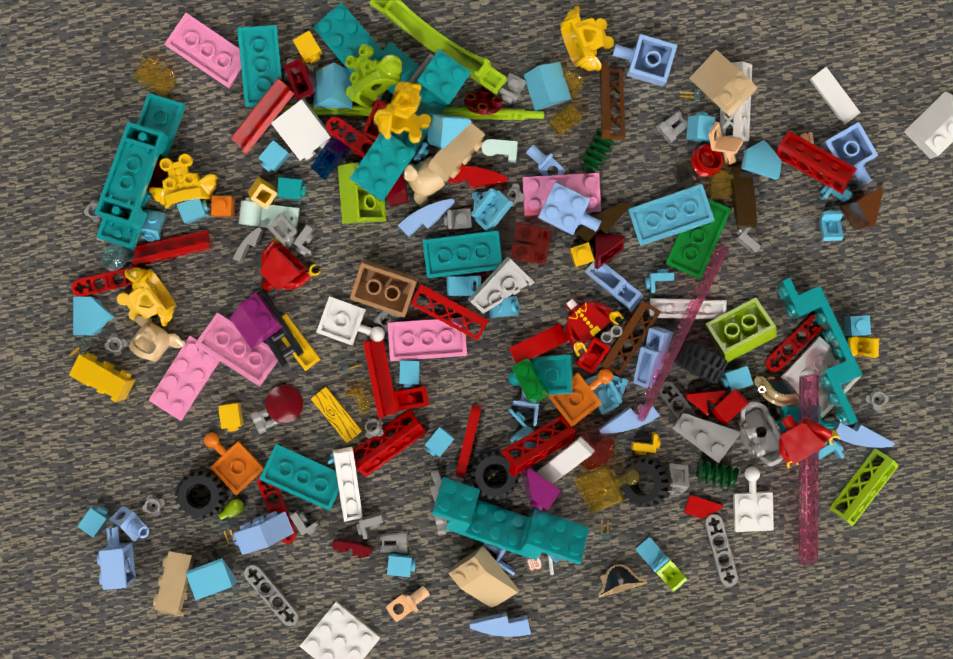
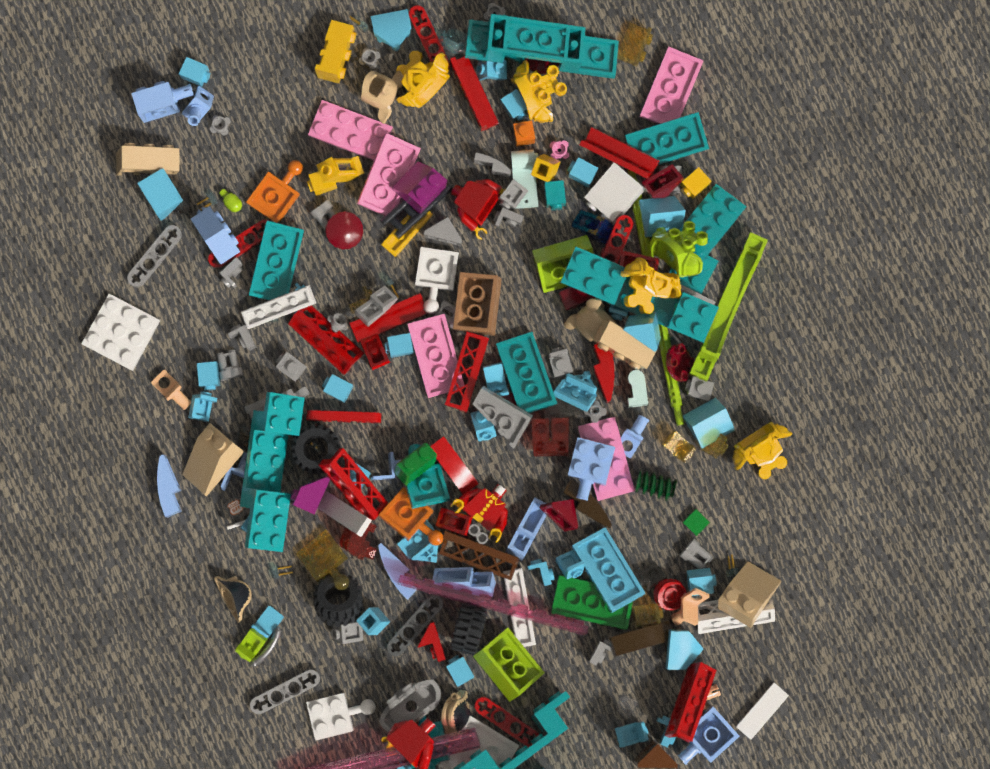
camera: 75 degrees right, 5 degrees down
(186, 500) = (240, 152): black tyre -> none
(222, 396) = (340, 169): none -> yellow window
(245, 170) = (559, 145): none -> bright pink plate
(306, 306) = (444, 232): none -> light grey slope
(336, 414) = (343, 283): yellow tile -> none
(358, 548) = (216, 332): dark red slope -> none
(367, 388) = (376, 306): none -> light grey slope
(407, 483) = (290, 366): none -> light grey bracket
(425, 216) = (555, 329): light blue slope -> none
(429, 577) = (201, 406): none -> medium azure bracket
(521, 419) = (376, 463): medium azure bracket -> none
(581, 255) = (550, 489): yellow brick -> none
(608, 103) = (706, 480): reddish brown fence -> none
(641, 120) = (696, 522): none -> green tile
(642, 448) = (371, 591): yellow bracket -> none
(649, 59) = (755, 515): light blue brick -> none
(658, 250) = (570, 565): none -> medium azure bracket
(673, 452) = (373, 621): none -> medium azure brick
(678, 559) = (268, 649): none -> flat silver piece
(701, 507) = (324, 662): red tile -> none
(705, 435) = (396, 652): light grey wing -> none
(716, 473) = (359, 669): dark green piece -> none
(730, 407) = (429, 667): red slope -> none

